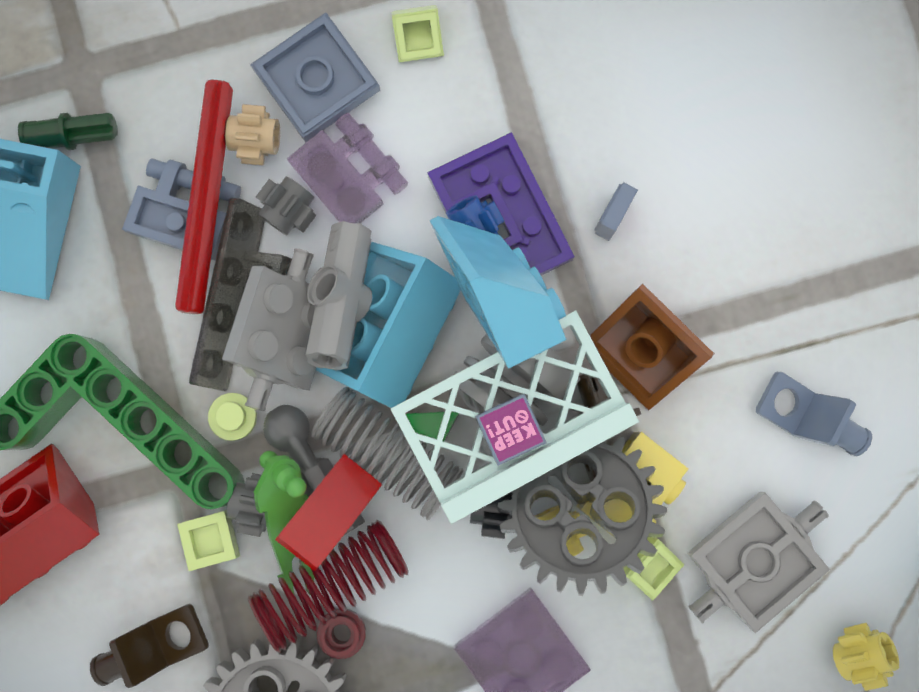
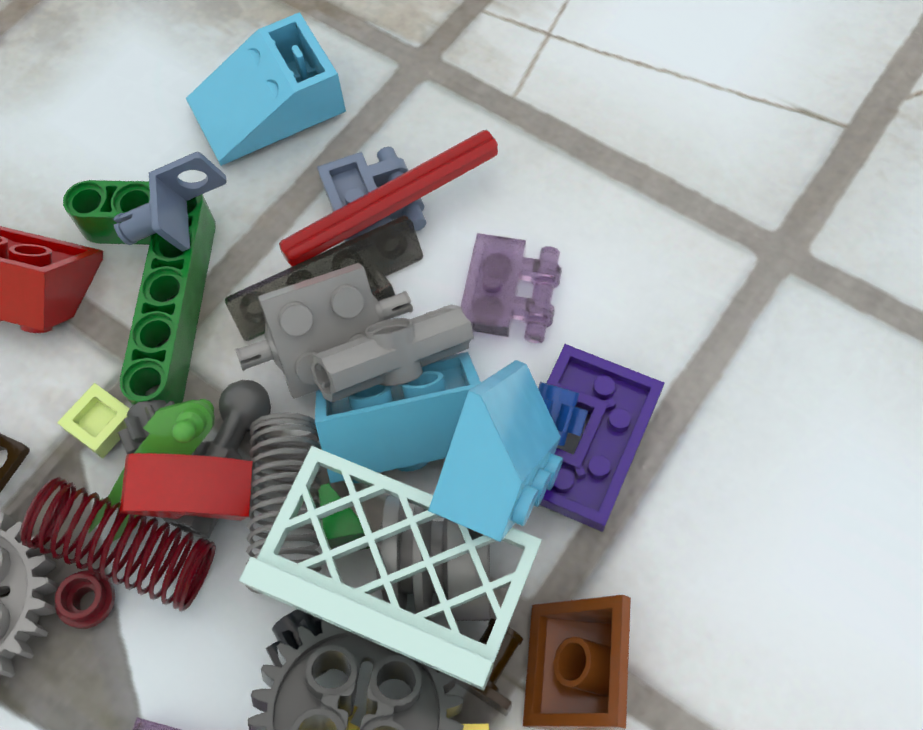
camera: 50 degrees right, 20 degrees down
(68, 130) = (365, 83): dark green axle -> none
(78, 374) = (167, 206): none -> sand blue bracket
(231, 418) = (219, 360): yellowish green plate -> none
(252, 134) = (474, 196): tan gear -> none
(286, 205) = (437, 262): dark grey gear -> none
(315, 77) = (565, 207): sand blue plate -> none
(417, 33) = (675, 252): yellowish green slope -> none
(510, 429) = (374, 565): tile -> none
(615, 211) = (681, 529): sand blue tile -> none

